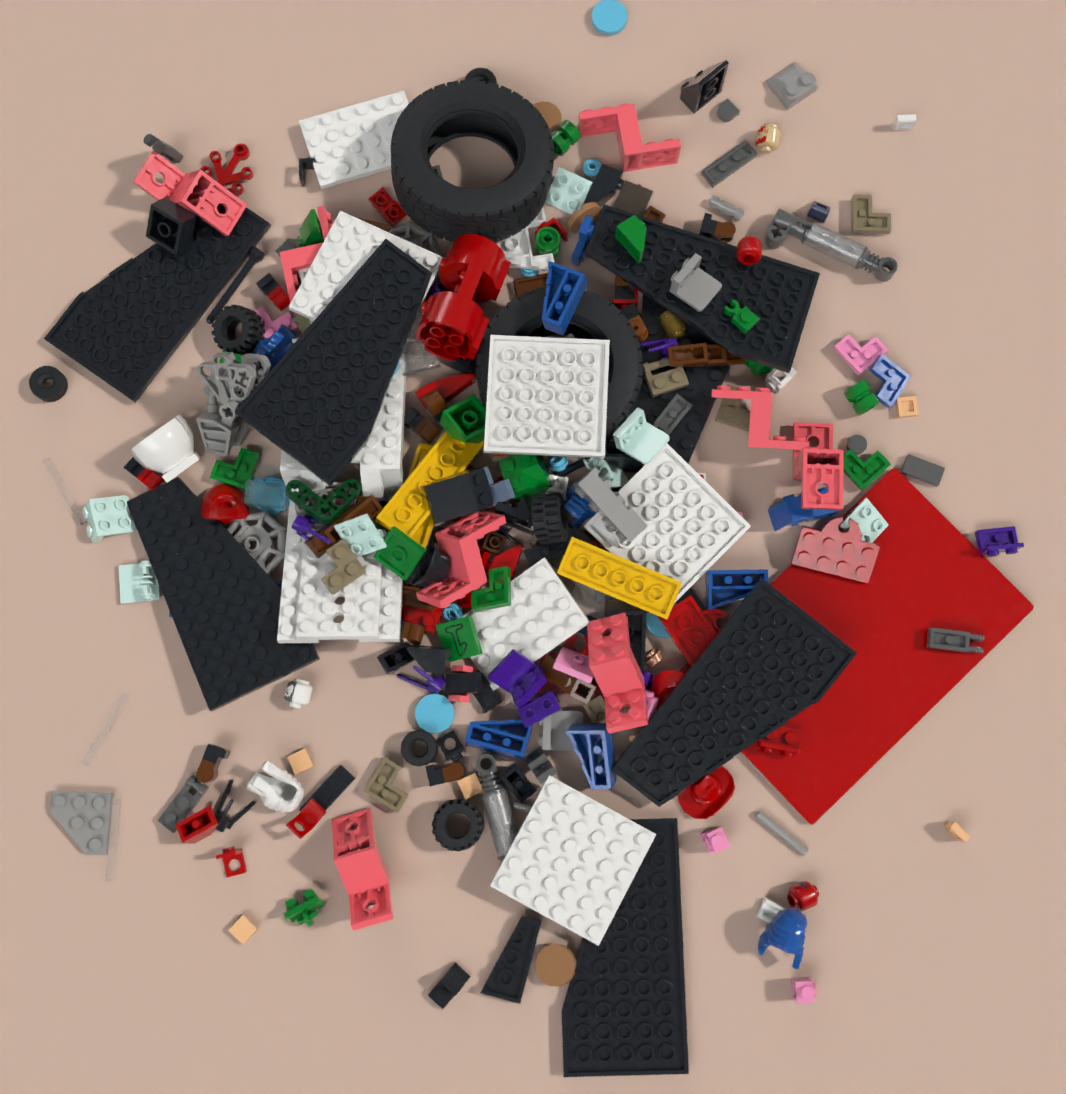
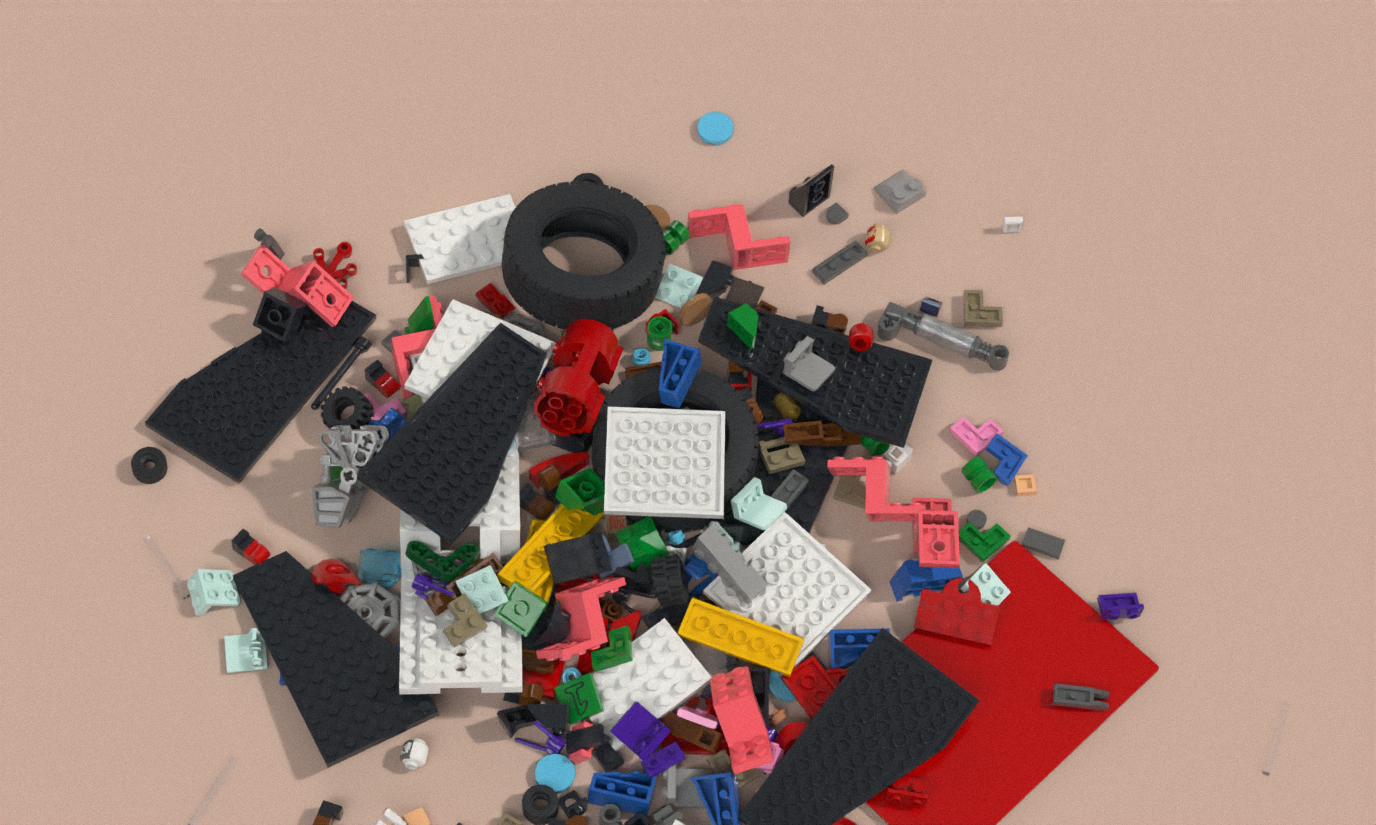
camera: 10 degrees left, 20 degrees down
(167, 449) = (279, 521): white plate -> none
(240, 472) = (347, 549): green plate -> none
(519, 251) = (632, 340): white wing -> none
(585, 233) = (697, 322): blue plate -> none
(591, 172) = (701, 270): medium azure plate -> none
(726, 207) = (838, 302): light grey axle -> none
(742, 318) = (855, 397): green plate -> none

